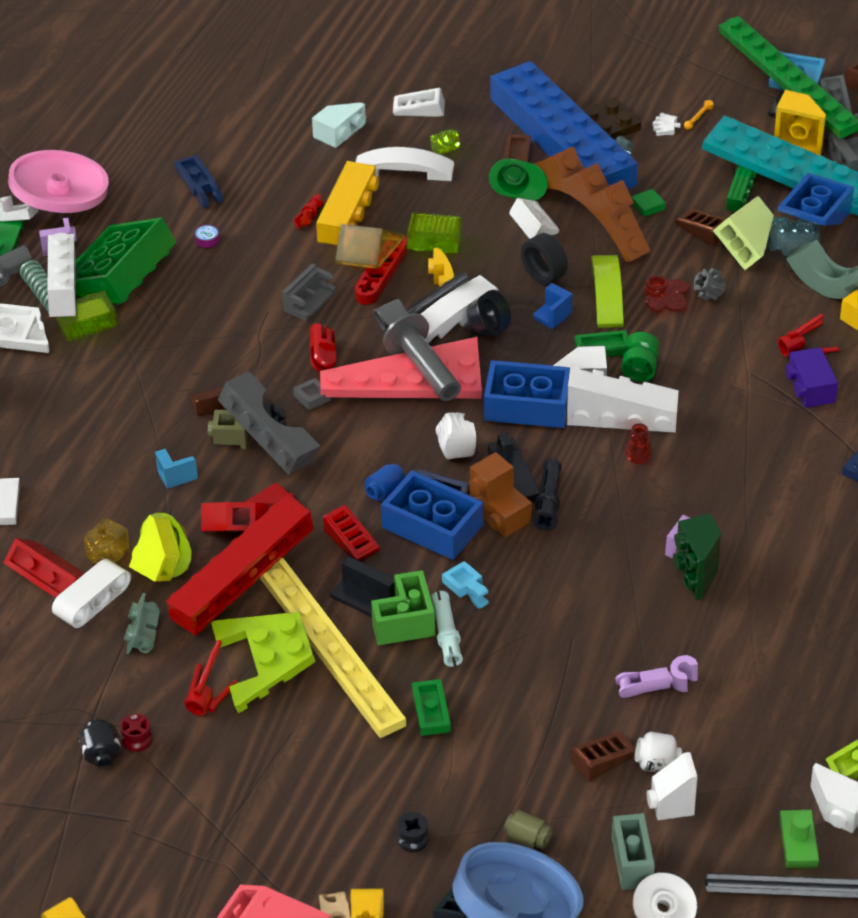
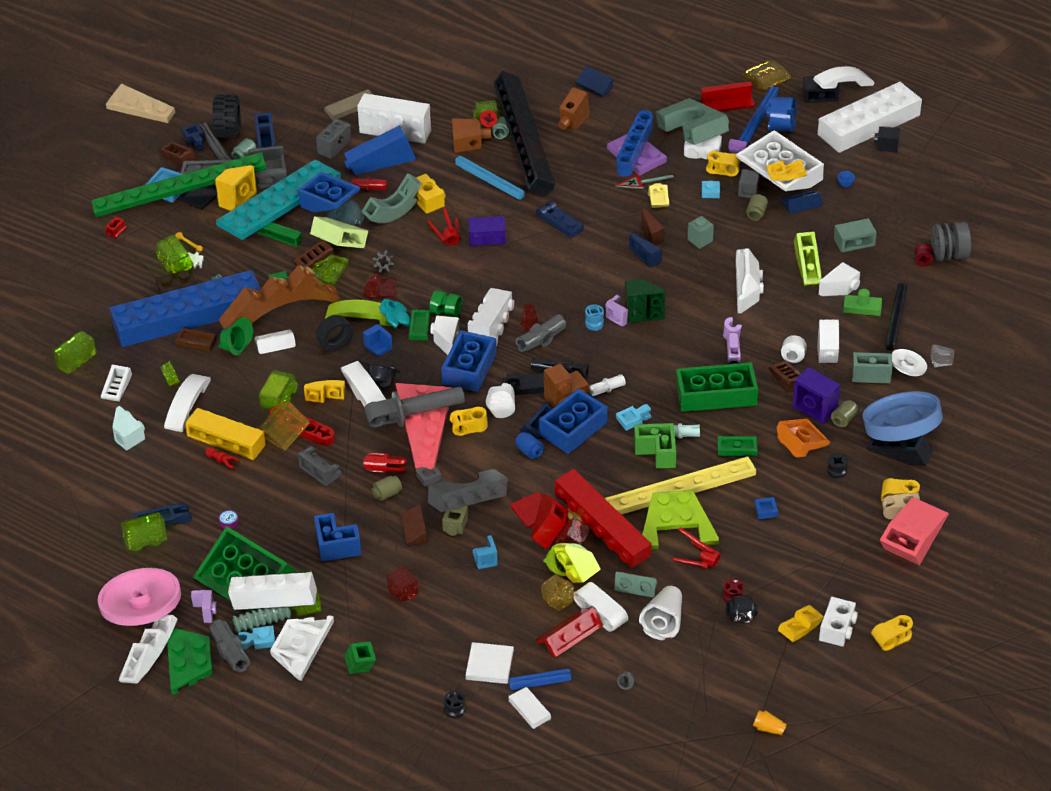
camera: 80 degrees left, 0 degrees up
(16, 293) = (261, 638): none -> medium azure plate
(83, 655) = (663, 614): none -> white cone
(85, 819) = (802, 623): none -> yellow slope
(86, 857) = (837, 621): none -> white brick
(109, 398) = (402, 584): none -> clear red brick
(163, 165) = (144, 531): none -> clear neon green brick
(172, 319) = (336, 541): none -> blue brick
(209, 541) = (573, 532): none -> clear red brick
(277, 357) = (386, 488): none -> olive brick
(307, 753) = (766, 508): none -> blue plate
(344, 518) = (563, 467): red slope -> none
(361, 586) = (626, 467): black panel -> none
(417, 417) = (471, 421): none -> yellow piece
(438, 293) = (352, 396): black bar -> none
(458, 57) = (74, 352): none -> clear neon green brick
(463, 779) = (800, 436): none -> orange slope
(525, 547) = (607, 385): none -> white axle
(540, 664) = (716, 387): none -> green brick
(545, 779) = (815, 395): none -> dark purple brick
(604, 314) = (394, 312): none -> teal plate
(610, 462) = (541, 334): none -> dark grey piece
(659, 101) = (174, 255): none -> clear neon green brick
(662, 514) = (594, 317): none -> dark azure wheel
(678, 240) = (330, 269): none -> clear neon green wing
(700, 48) = (116, 226): none -> red piece
(797, 675) = (747, 280): none -> white wedge
(828, 552) = (646, 251): none -> dark blue slope

